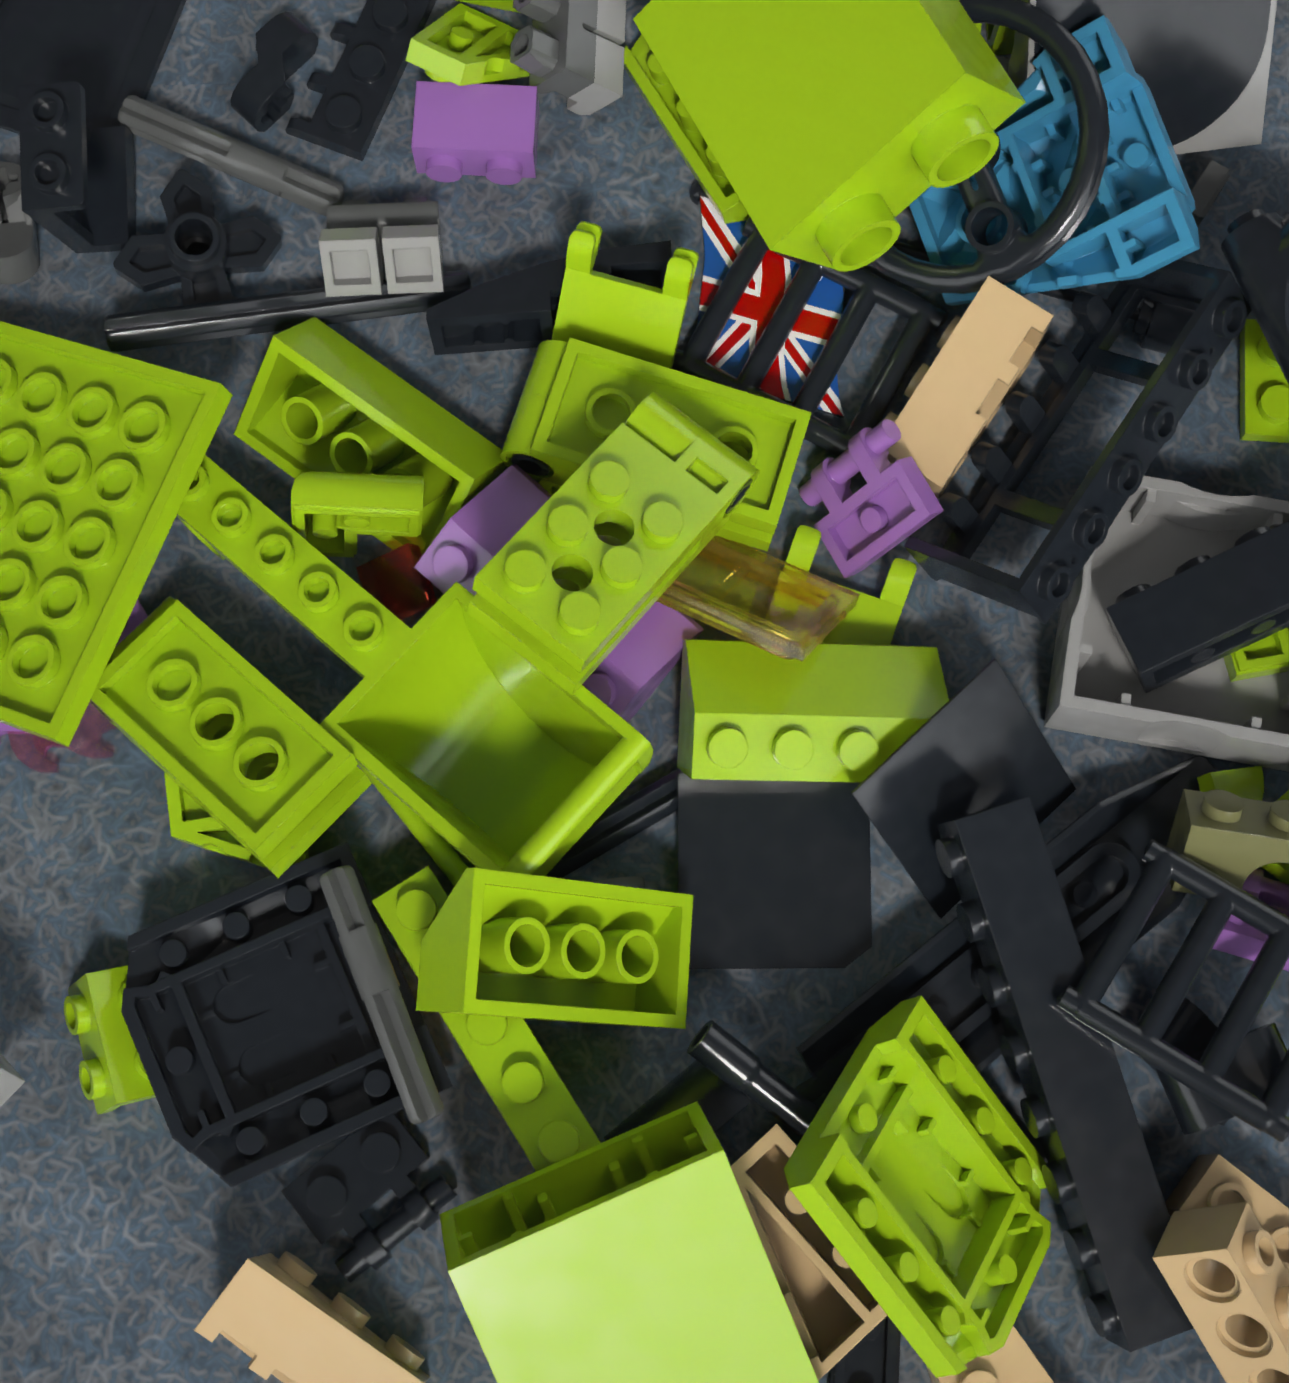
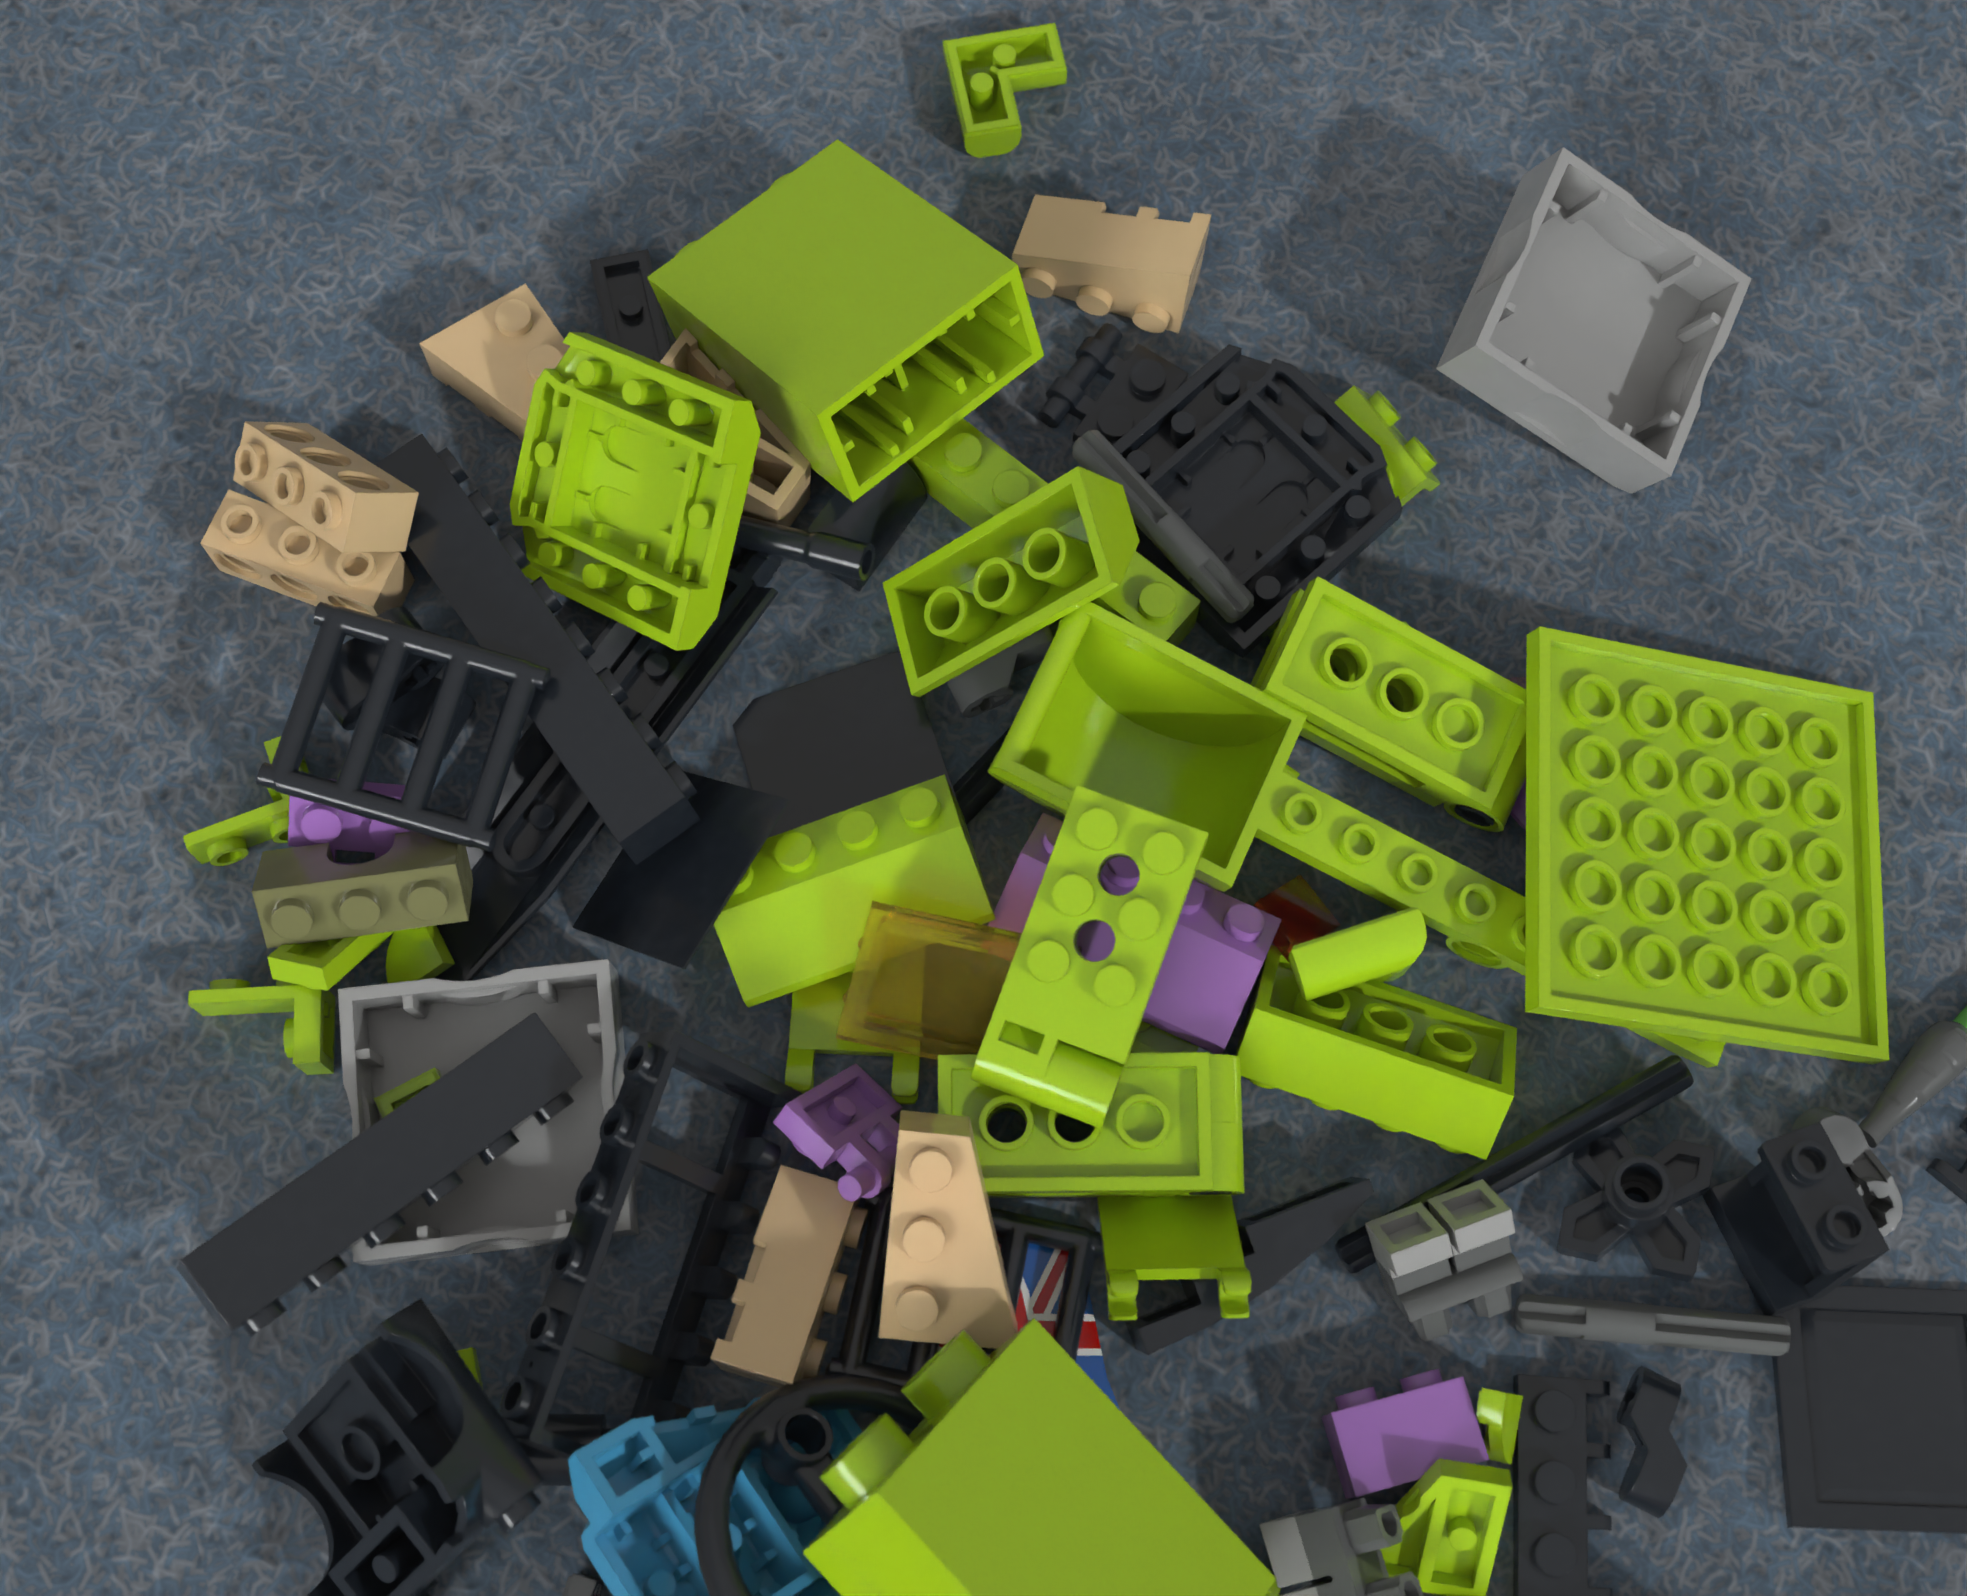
camera: 160 degrees right, 5 degrees down
(392, 118) = (1501, 1414): none -> lime tile
(823, 358) = (942, 1240): none -> tan wedge

